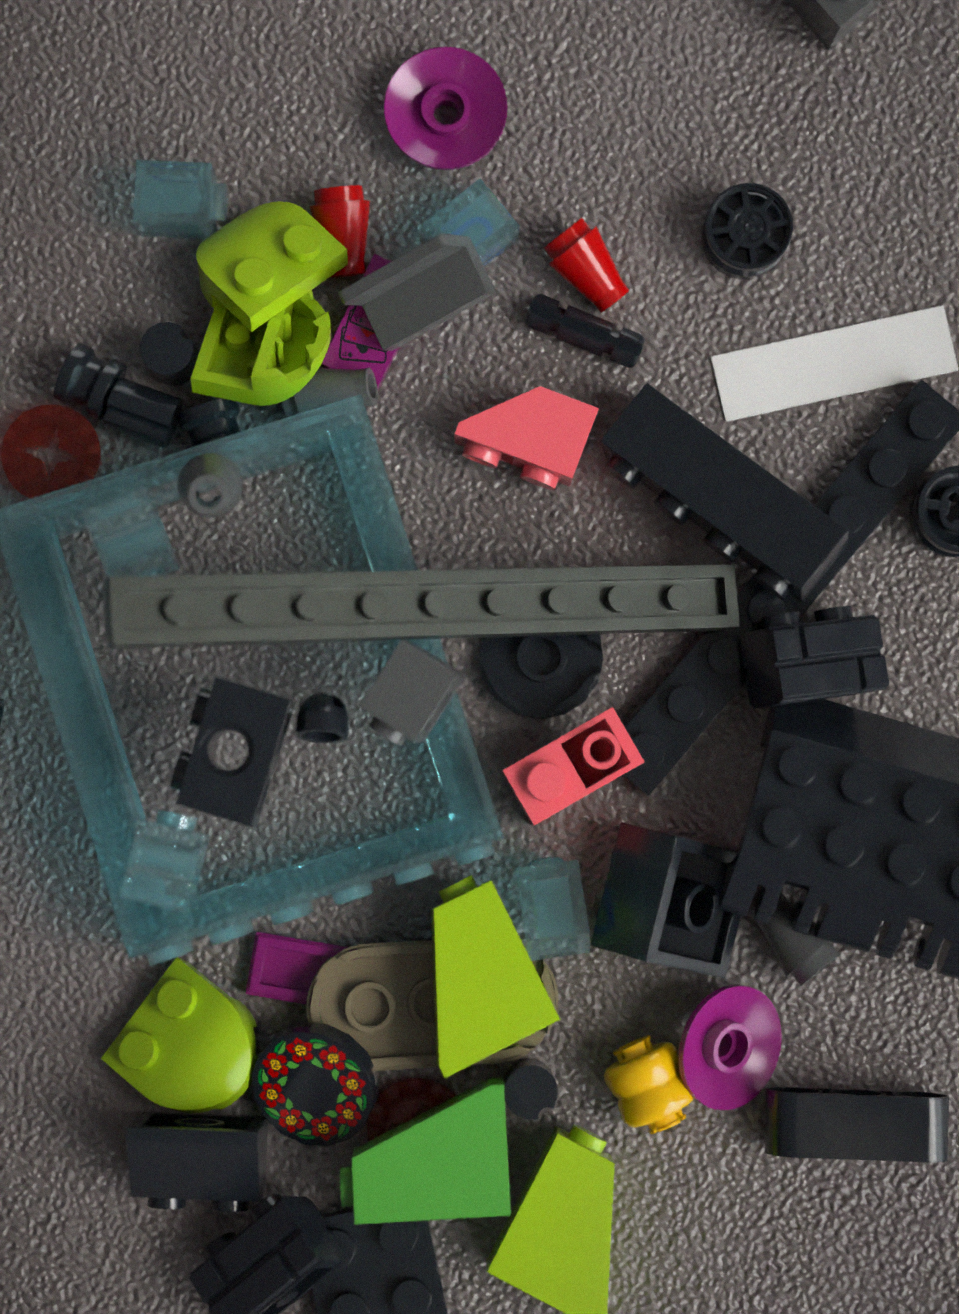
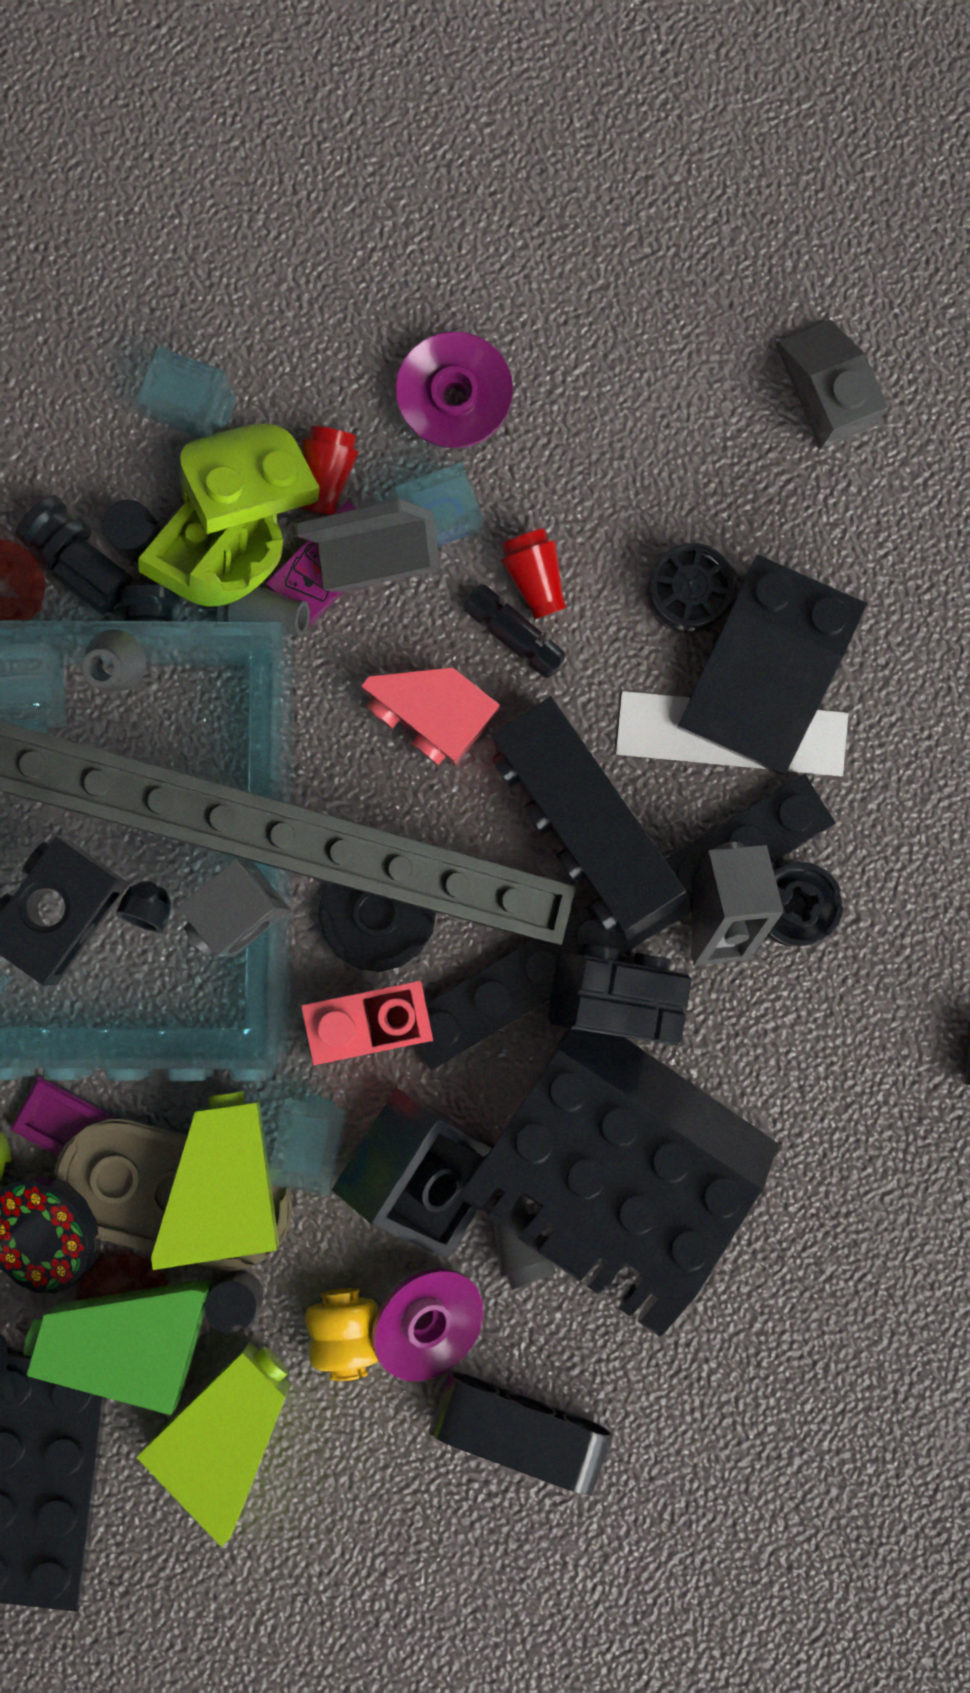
camera: 25 degrees right, 0 degrees up
(853, 281) = (771, 664): none -> black slope
(895, 530) = (733, 903): none -> dark grey slope

